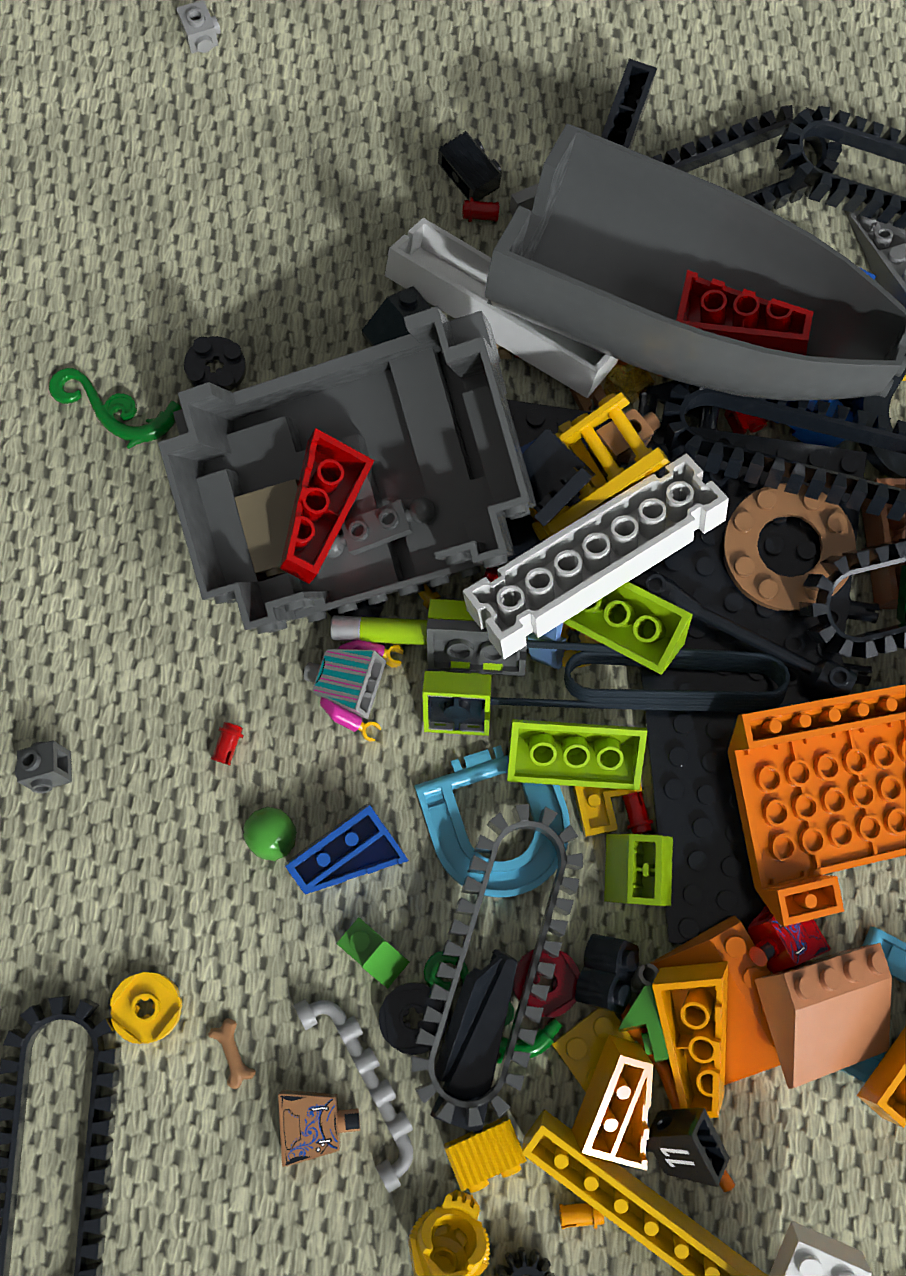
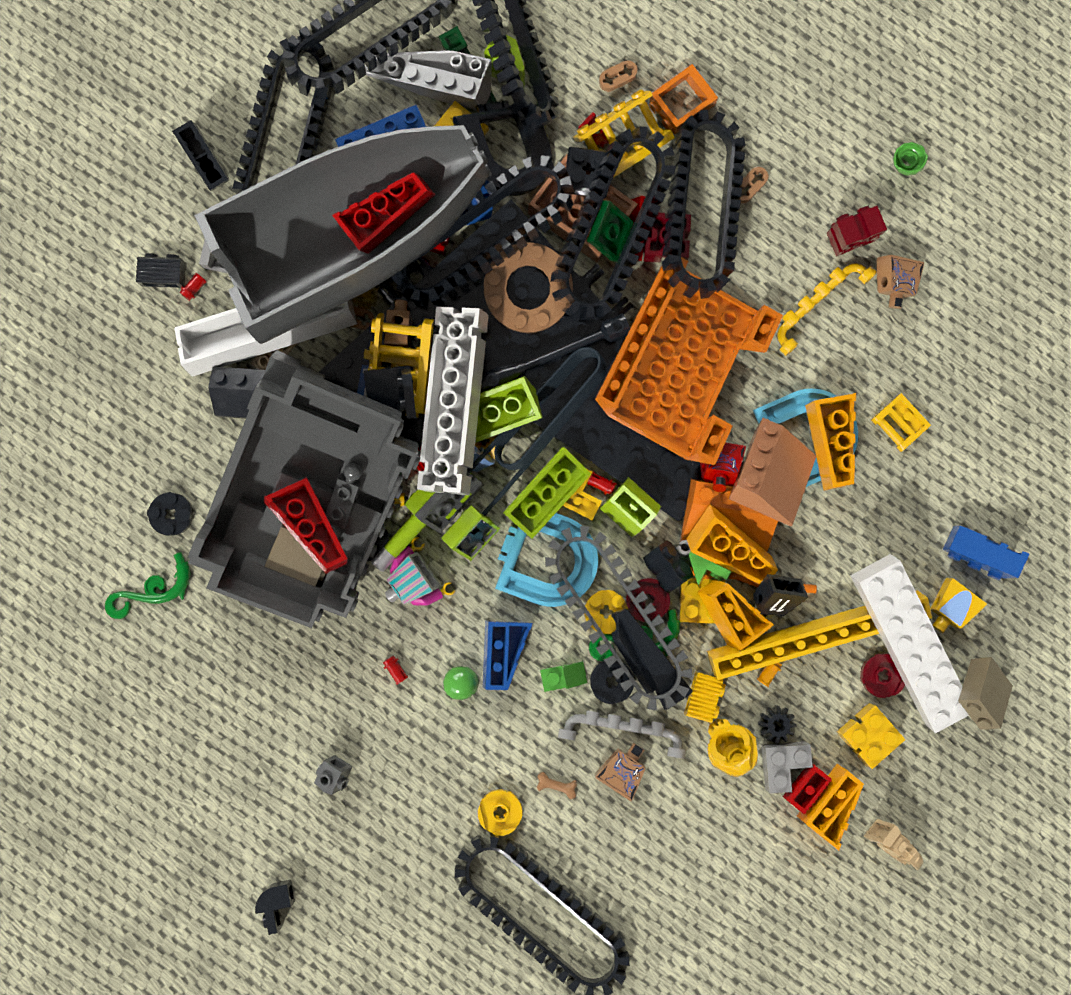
camera: 40 degrees left, 10 degrees up
(495, 922) = (598, 601): none -> yellow plate

